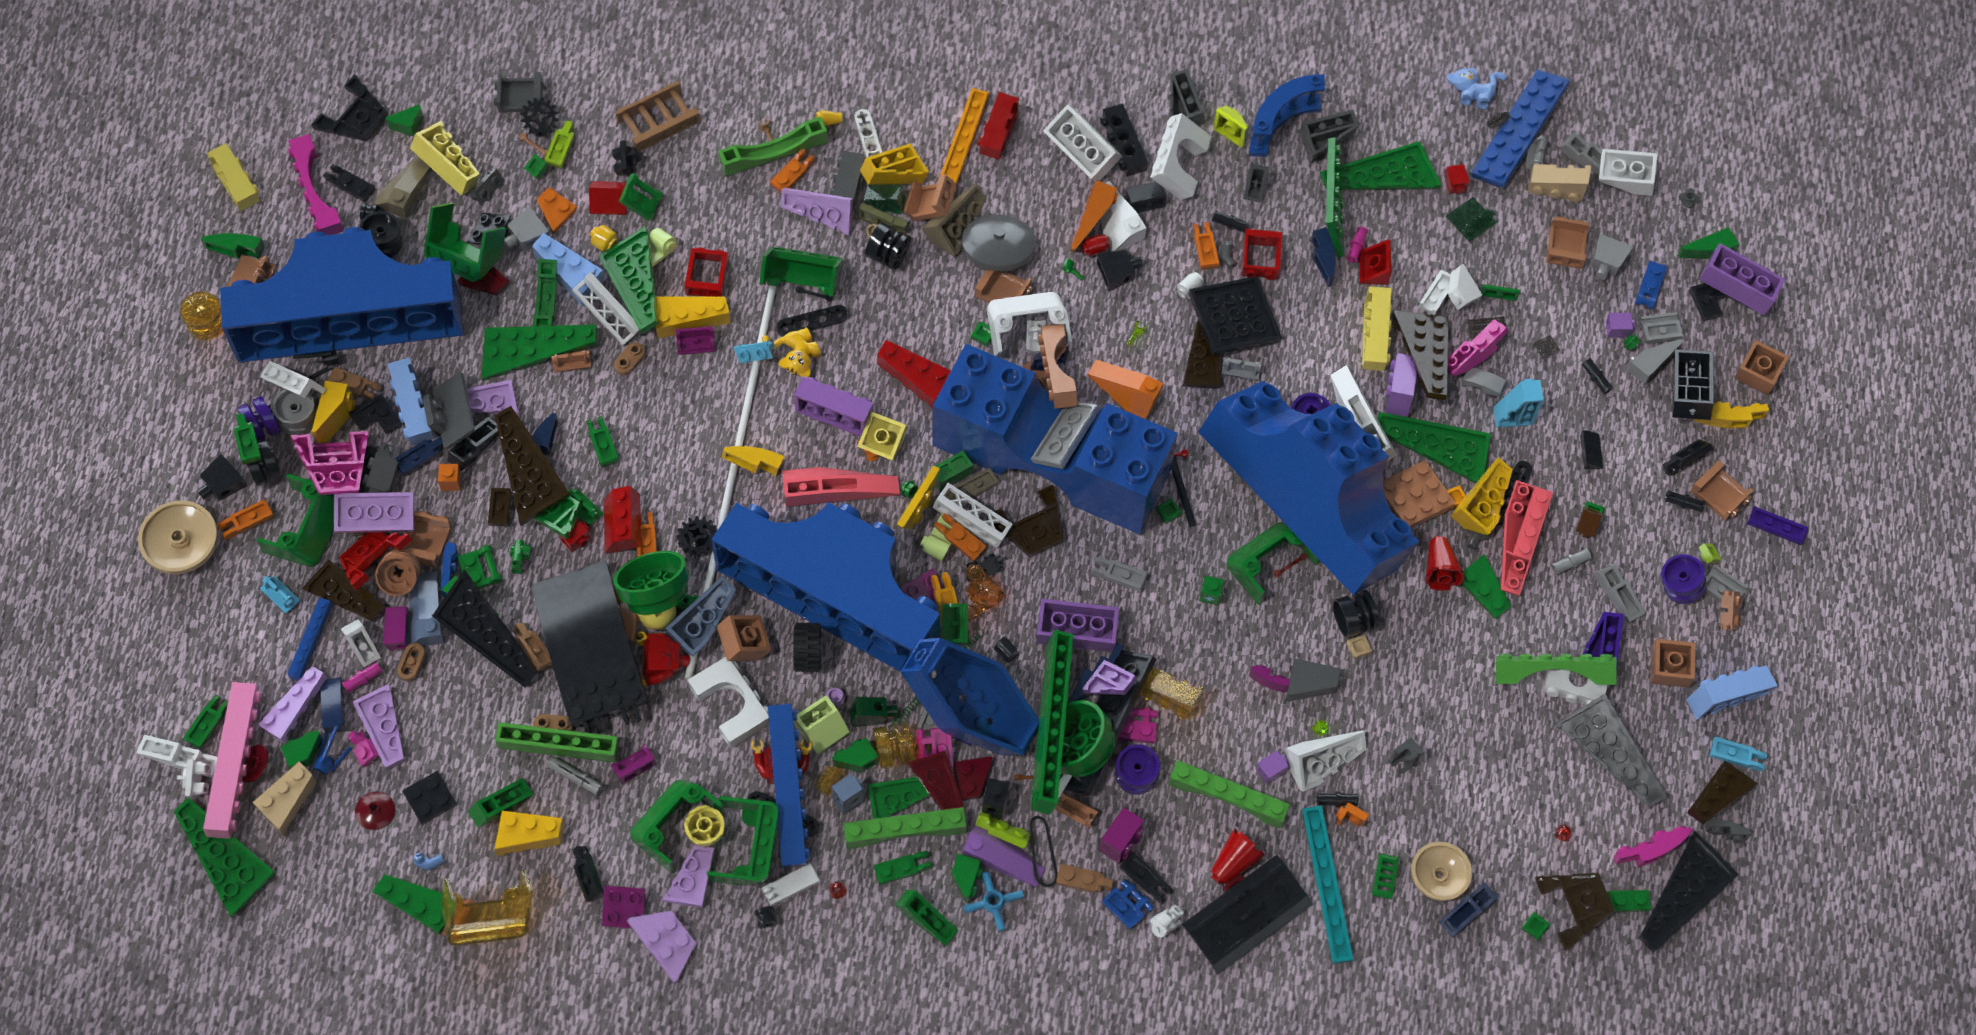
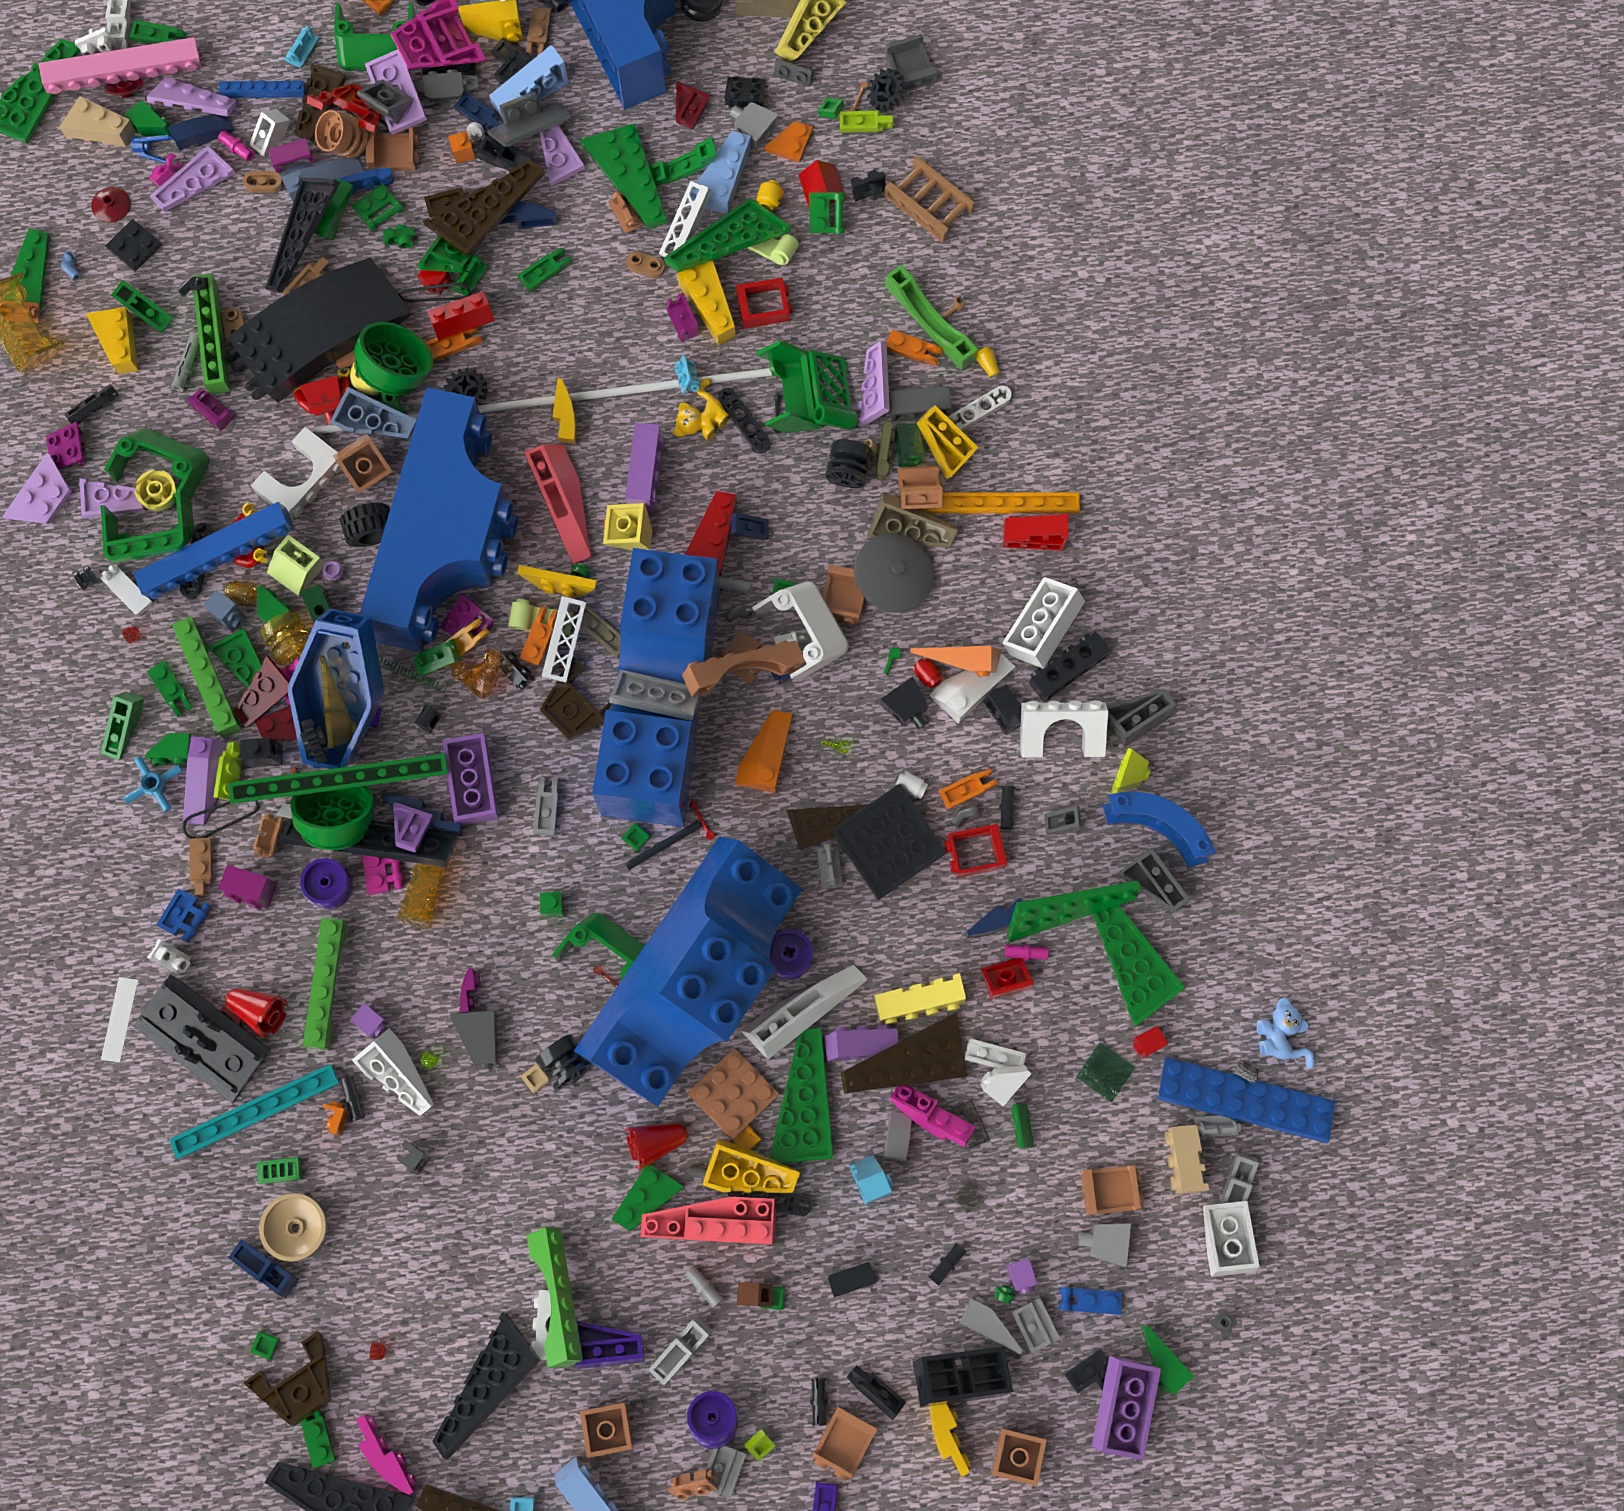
camera: 75 degrees right, 10 degrees up
(384, 519) = (386, 100): none -> dark grey slope
(435, 460) = (475, 131): none -> white piece
(466, 260) = (708, 63): green windscreen -> none
(506, 738) = (191, 283): none -> black arm
(588, 534) = (432, 287): none -> black piece
(834, 244) = (831, 412): none -> green piece
(917, 340) = (749, 526): none -> dark blue plate
(954, 470) = (607, 603): green hinge -> none
(987, 707) = (337, 717): none -> clear yellow wedge
(1012, 729) = (314, 741): none -> black gear
(1145, 877) = (216, 925): black hinge -> none
(1207, 986) = (119, 1019): none -> white sticker

